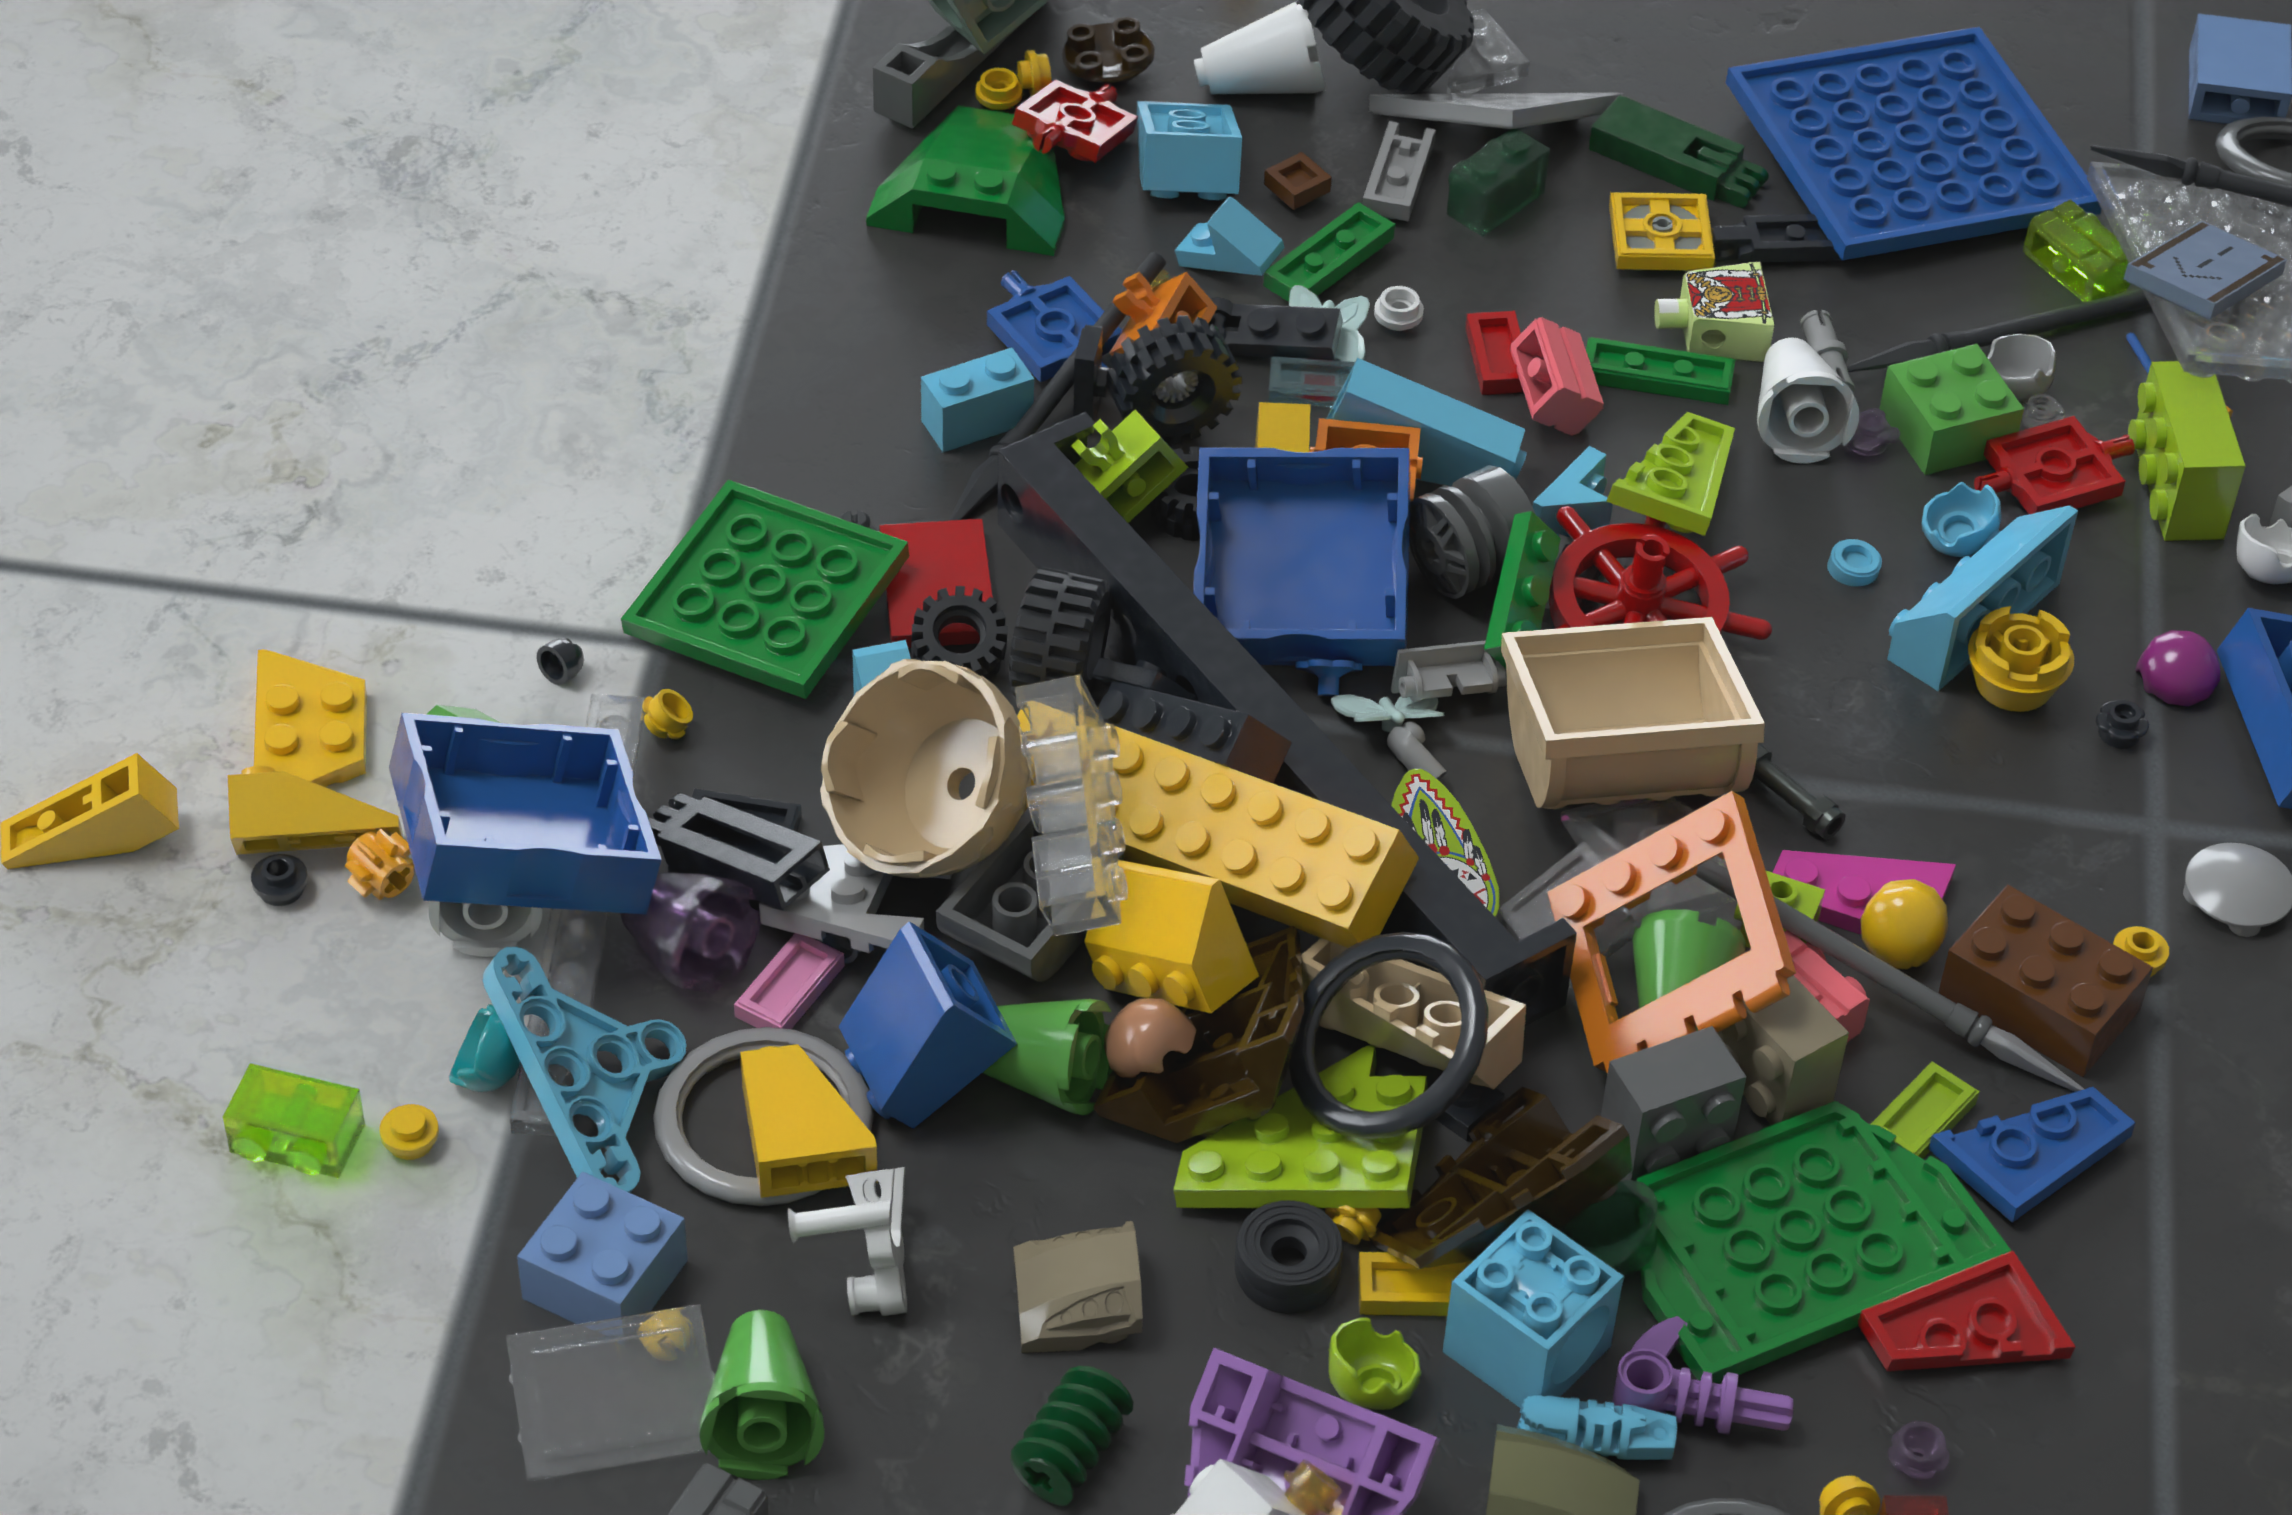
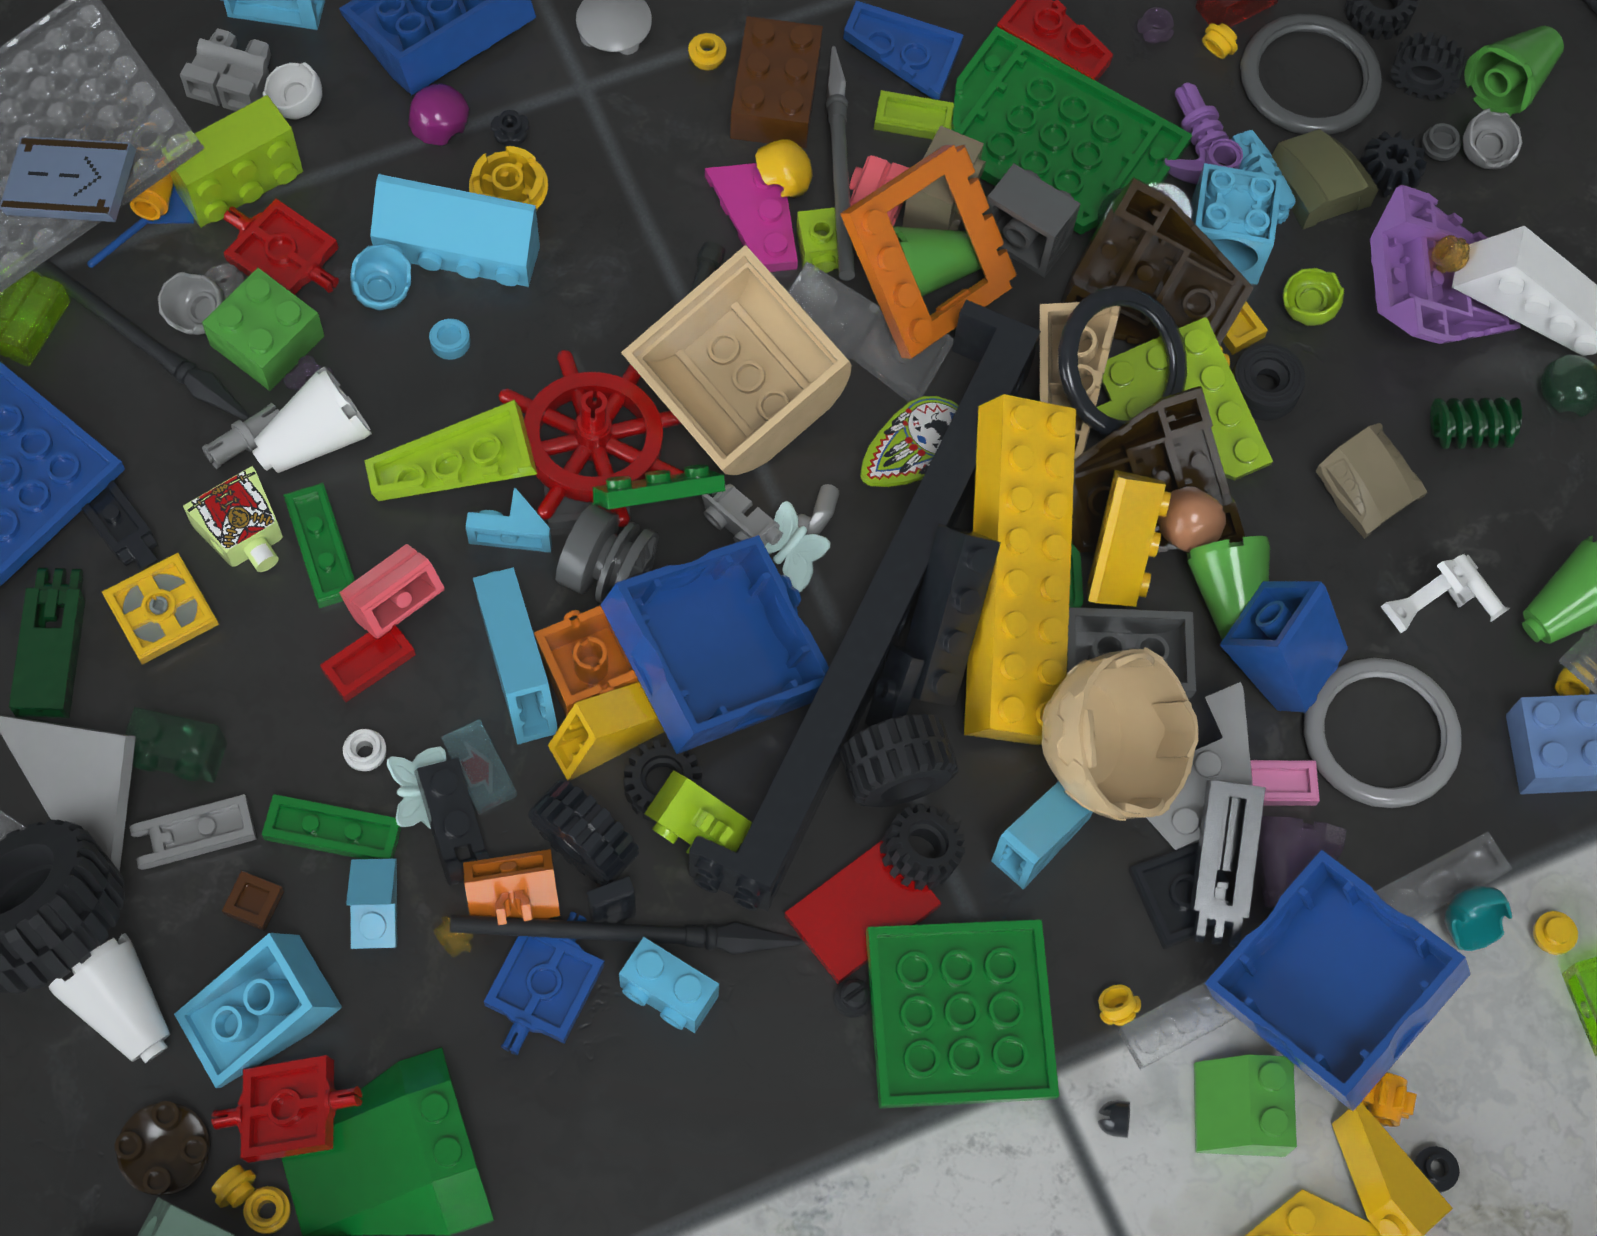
camera: 125 degrees left, 20 degrees up
(573, 1042) = (1443, 855): medium azure beam -> none
(800, 1124) = (1399, 684): yellow slope -> none
(1073, 805) = (1093, 621): clear wedge -> none

